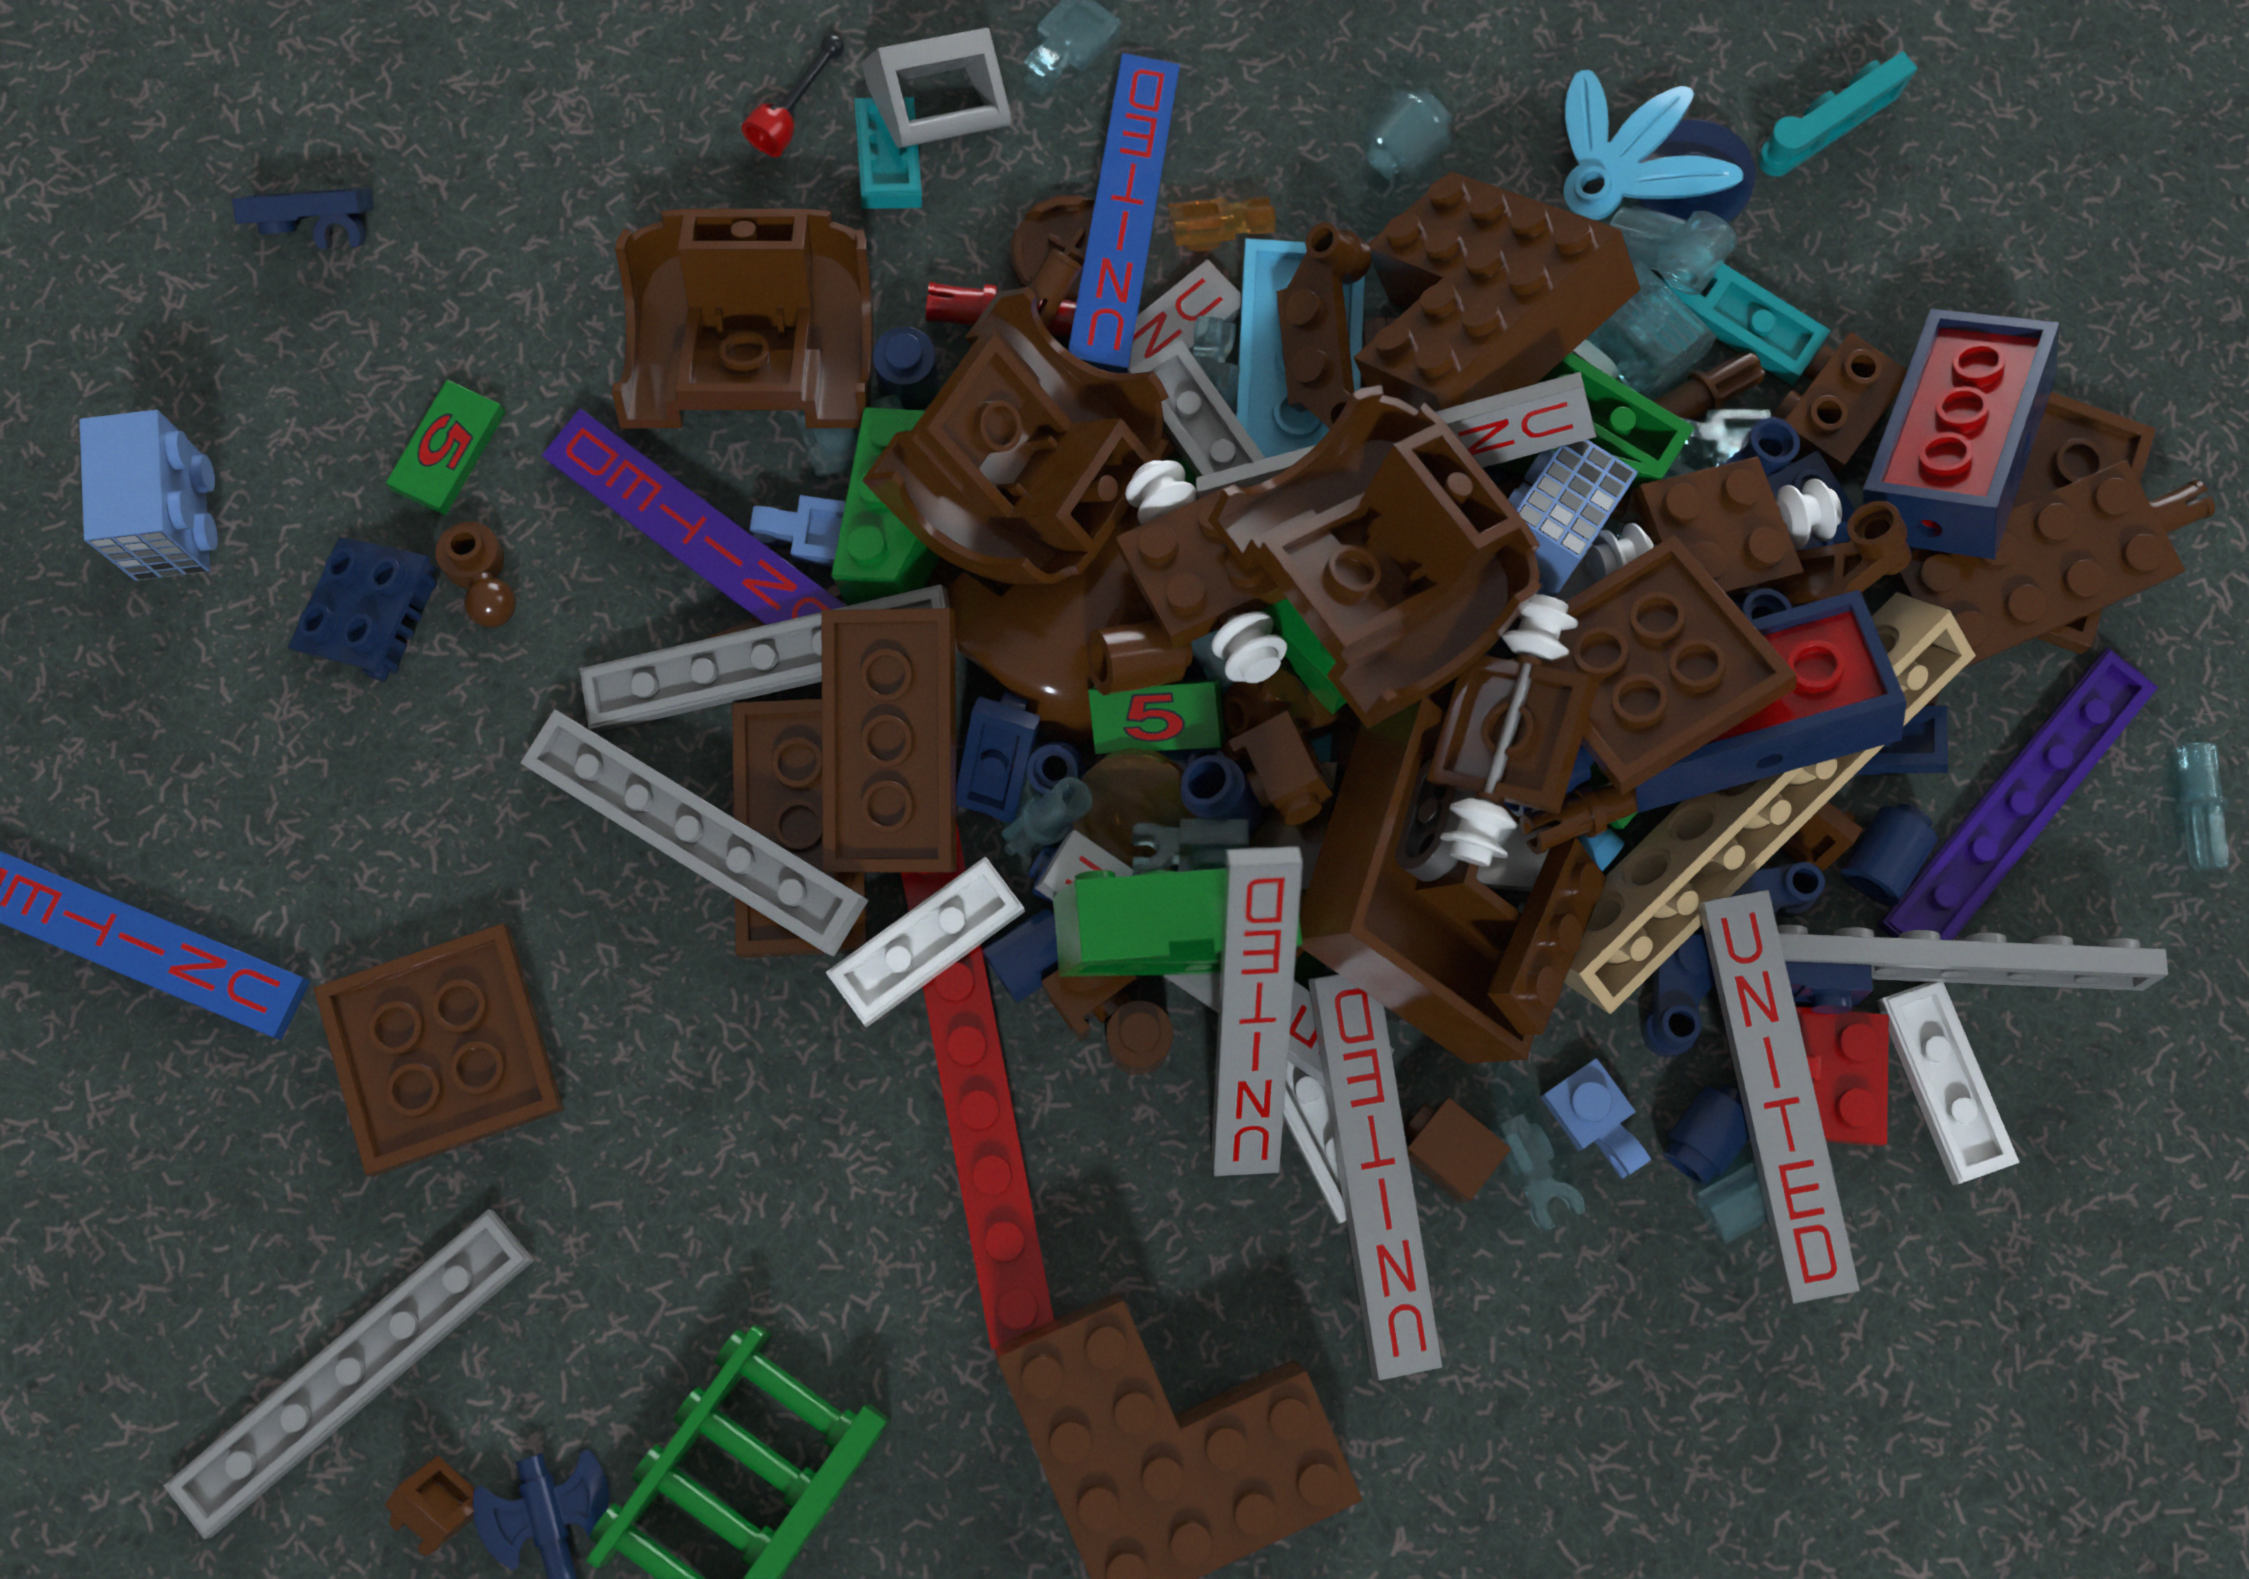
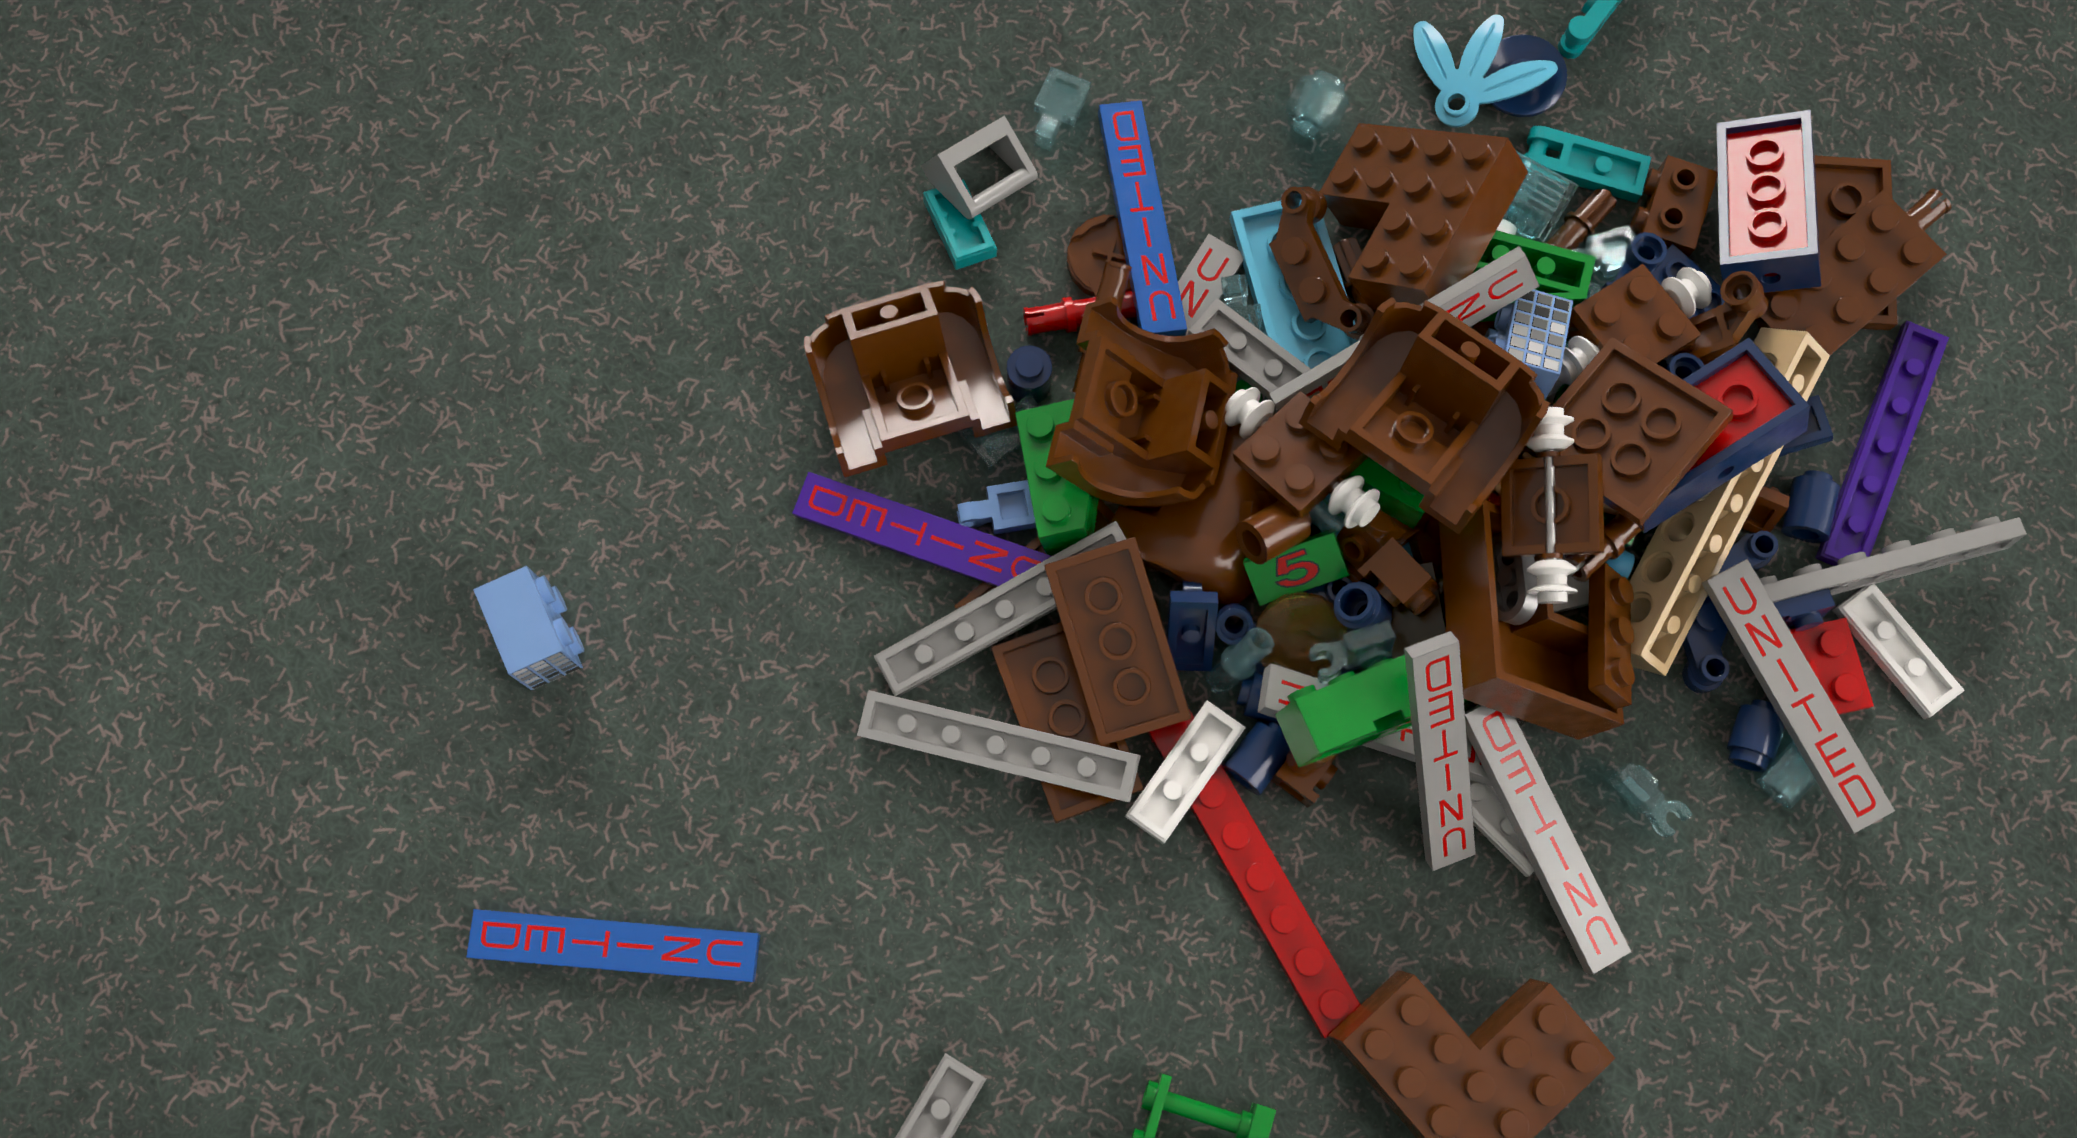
camera: 15 degrees left, 0 degrees up
(279, 211) = (543, 394): dark blue plate -> none
(362, 606) = (704, 658): dark blue hinge -> none
(437, 1049) = (870, 953): reddish brown plate -> none
(445, 447) = (721, 528): green tile -> none
(488, 599) = (792, 627): reddish brown plate -> none
(772, 126) = (870, 228): red hinge -> none
(1139, 1037) = (1352, 792): reddish brown brick -> none
(1208, 222) = (1202, 206): clear orange plate -> none
(1453, 1148) = (1590, 800): reddish brown brick -> none
(1592, 1110) = (1671, 746): medium blue plate -> none
(1680, 249) = (1536, 131): clear light blue piece -> none
(2202, 805) = (2004, 409): clear light blue axle -> none

